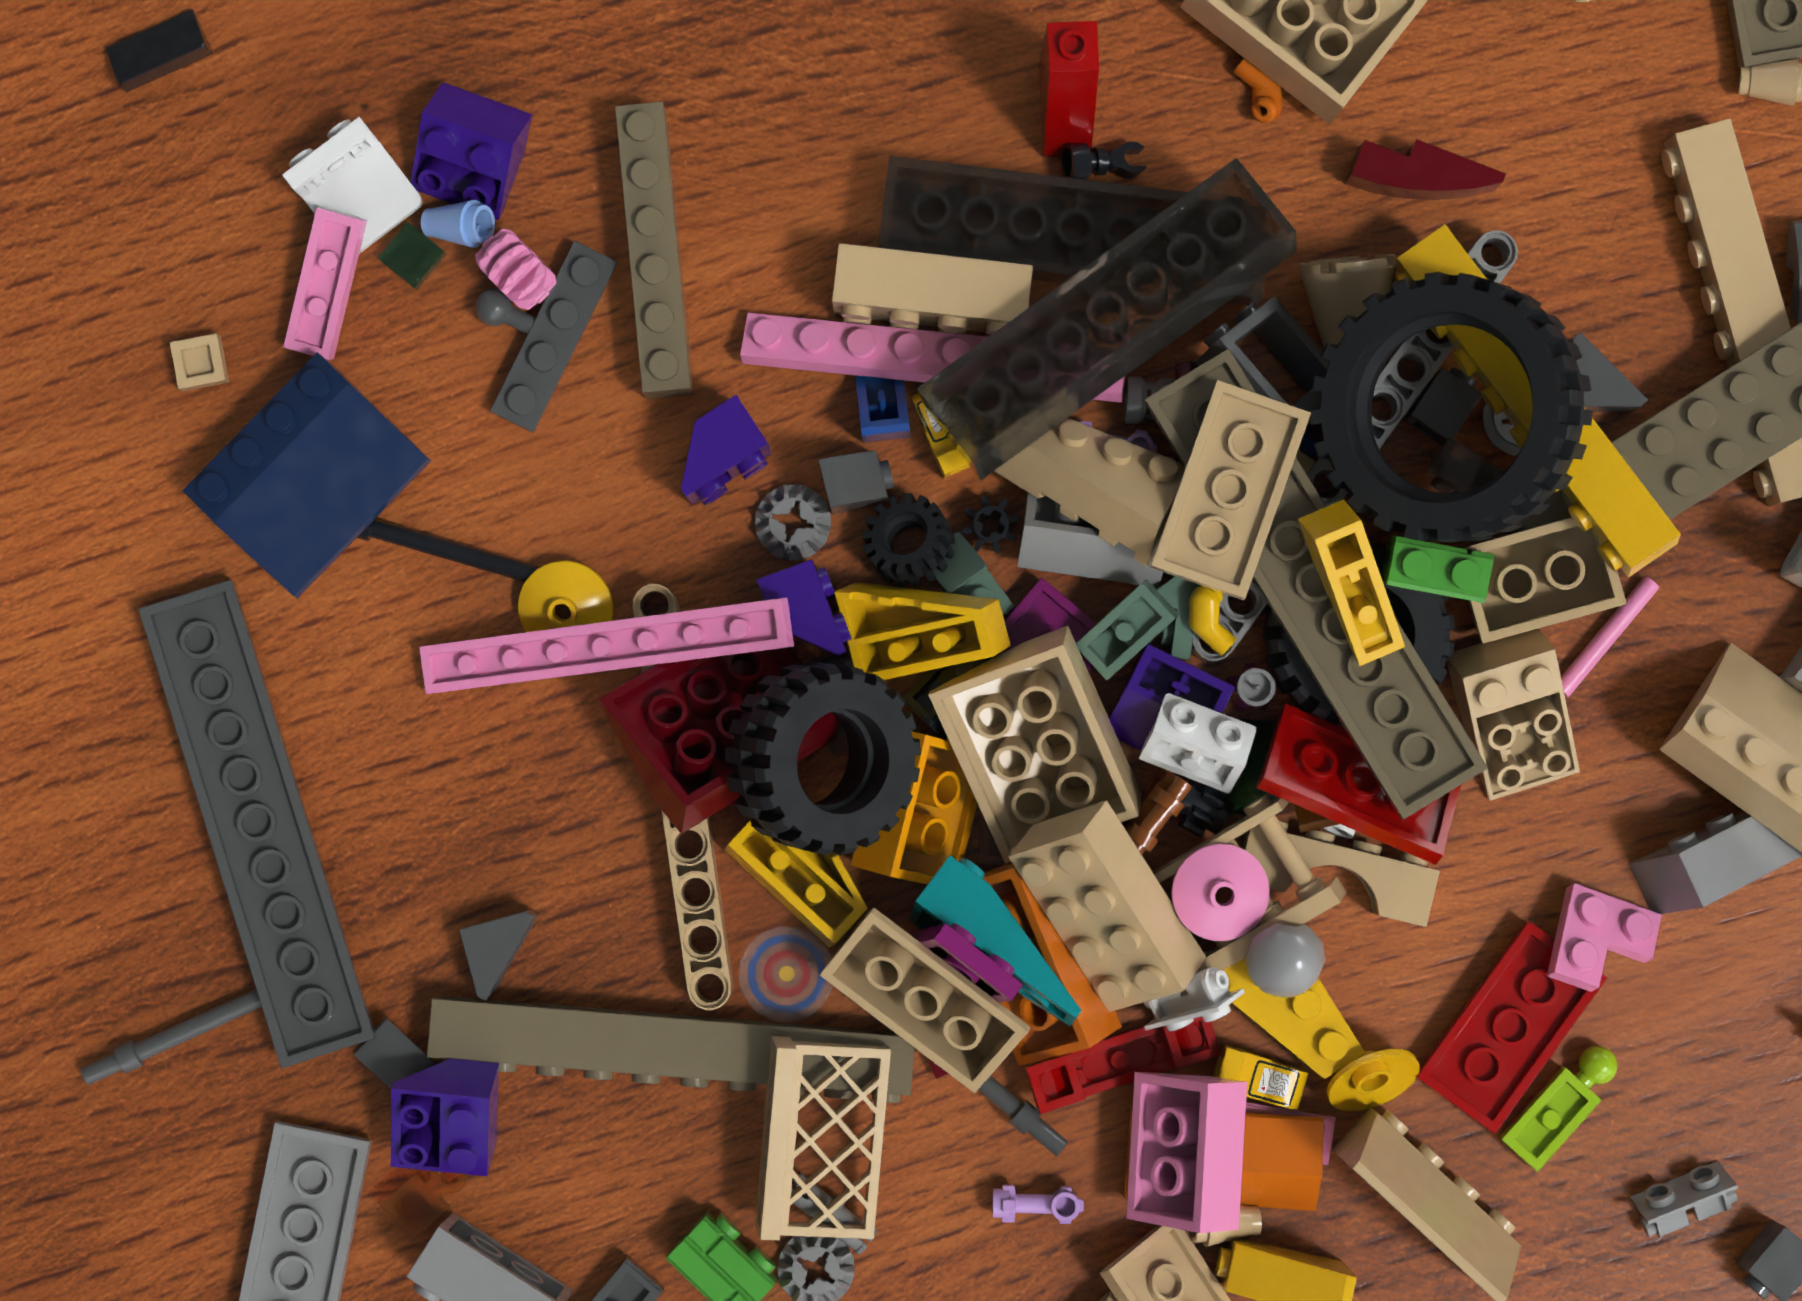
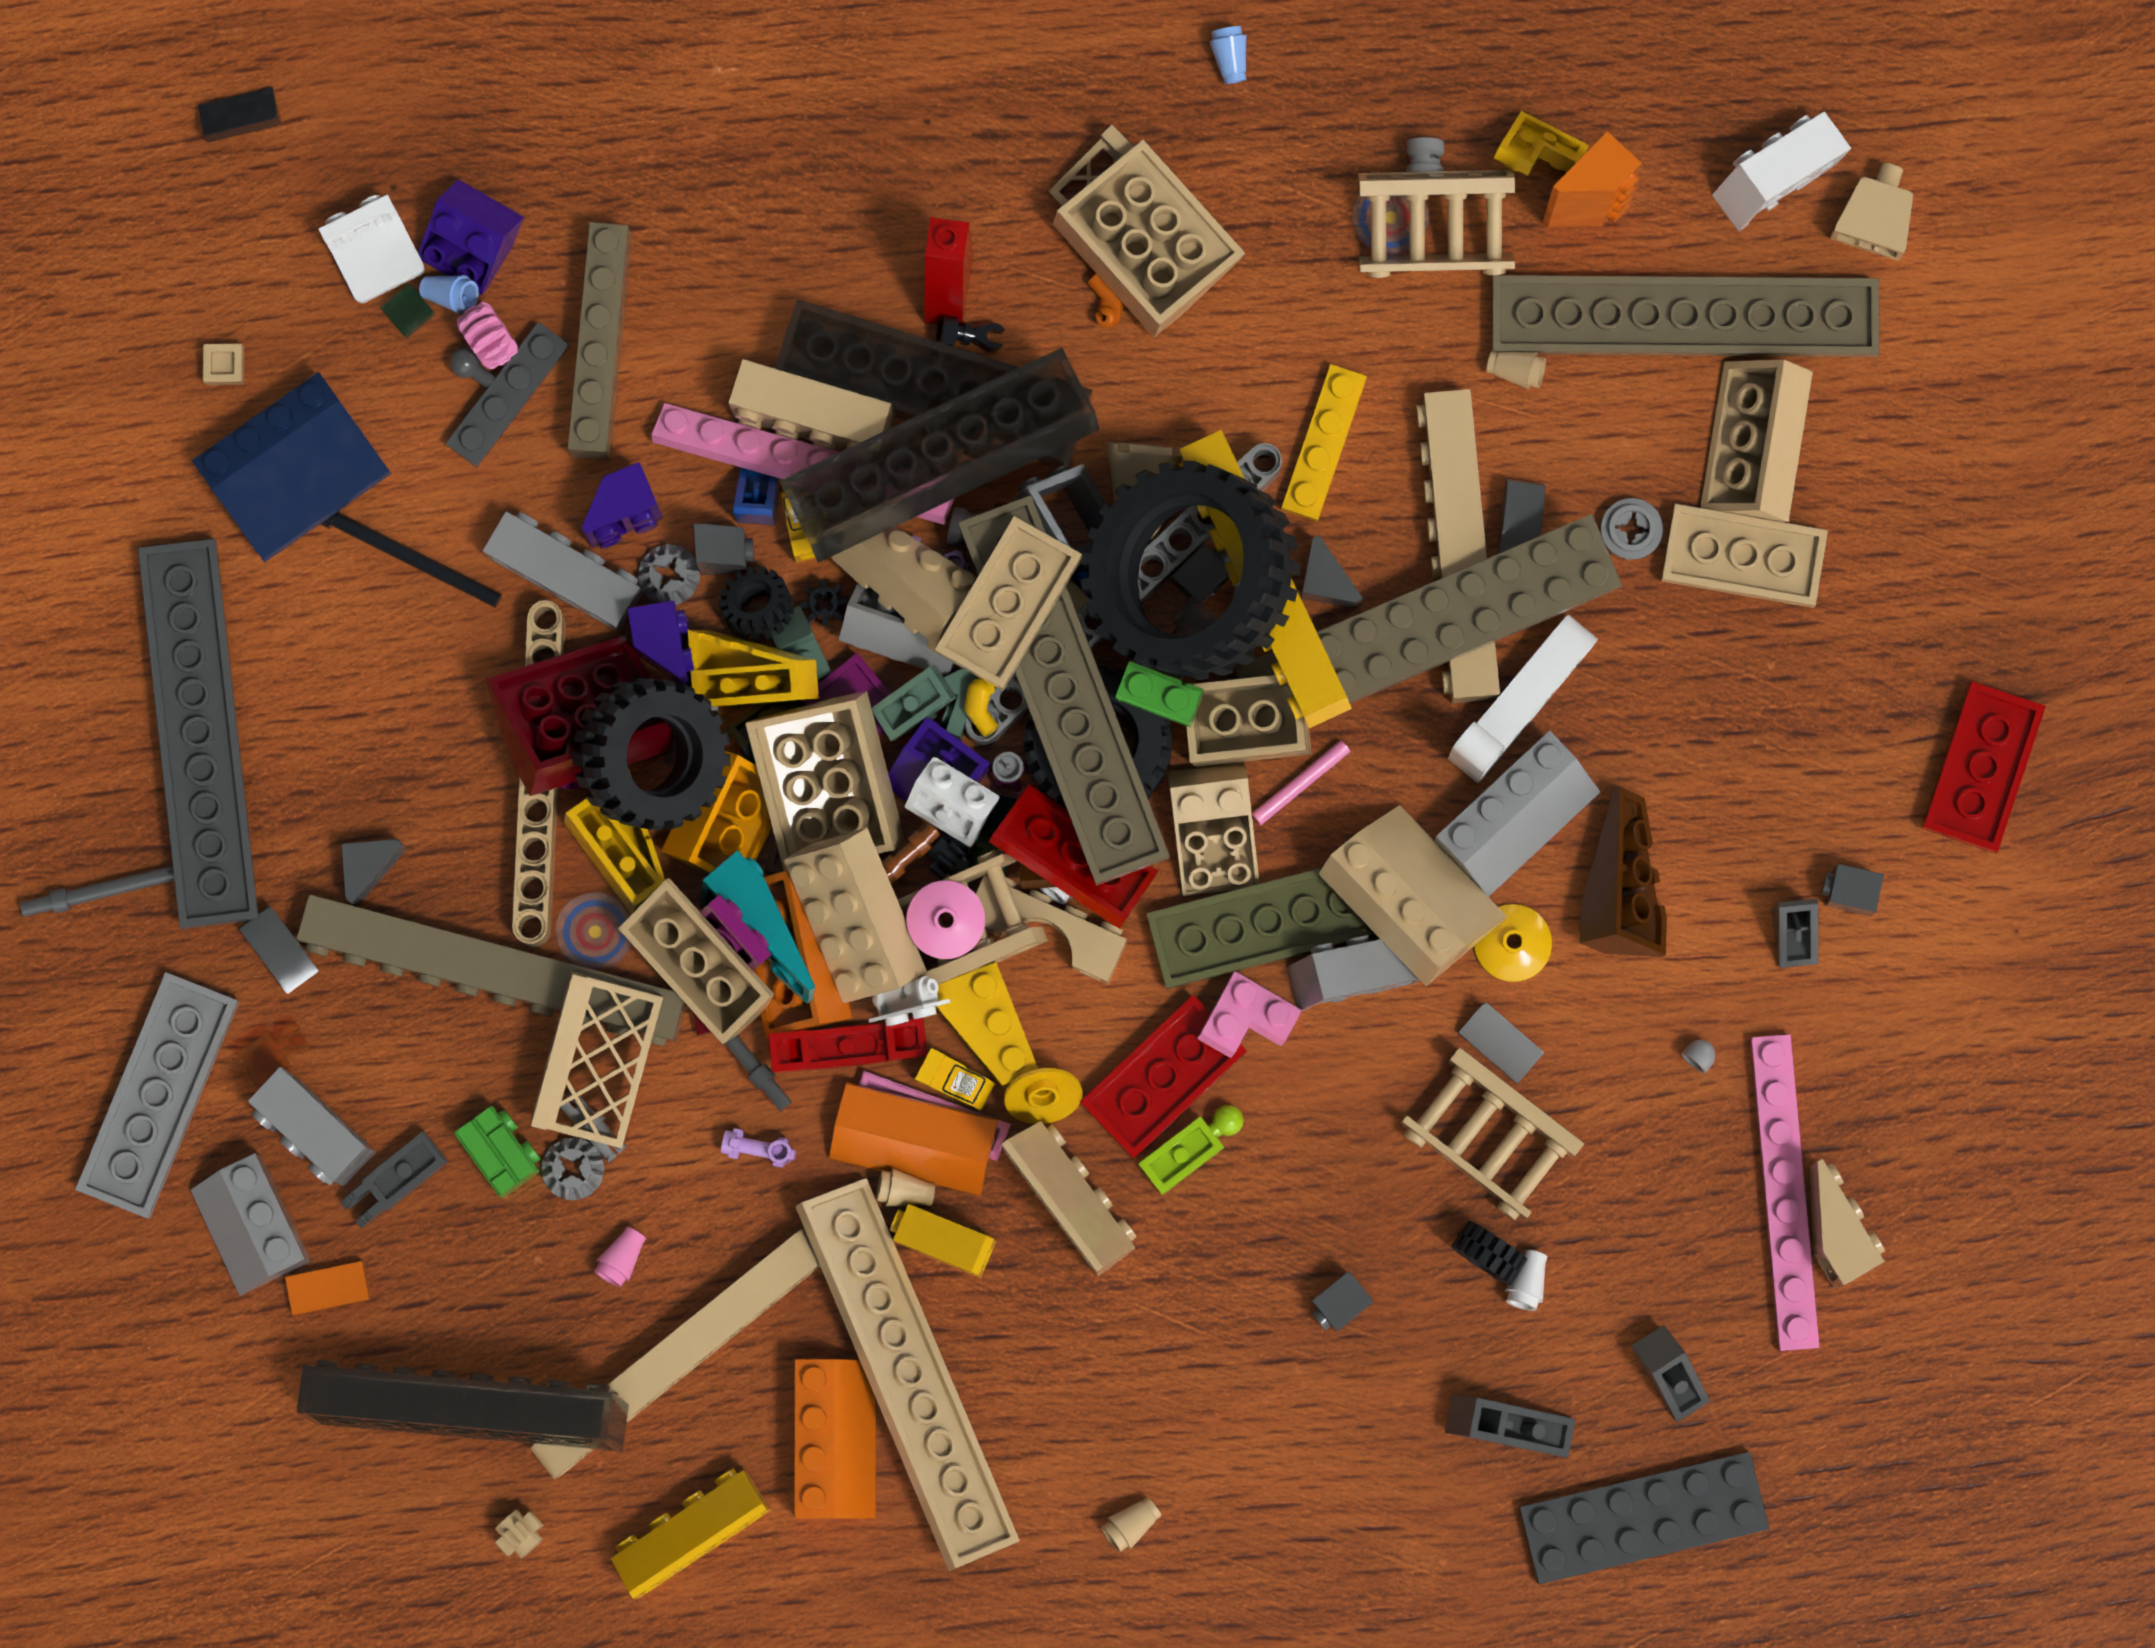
camera: 15 degrees right, 5 degrees down
(325, 283) = (335, 320): bright pink plate -> none
(446, 1118) = (302, 989): dark purple slope -> none
(565, 584) = (493, 605): yellow dish -> none
(607, 646) = (500, 640): bright pink plate -> none
(665, 543) = (563, 571): none -> light grey brick
(1186, 1151) = (881, 1119): bright pink slope -> none
(1285, 959) = (986, 980): light grey hair -> none
(1352, 581) = (1089, 691): yellow slope -> none
(1421, 173) = (1220, 389): dark red slope -> none
(1557, 214) = (1324, 443): none -> yellow plate
(1583, 825) = (1250, 928): none -> olive plate
(1704, 1189) = (1260, 1242): light grey hinge -> none

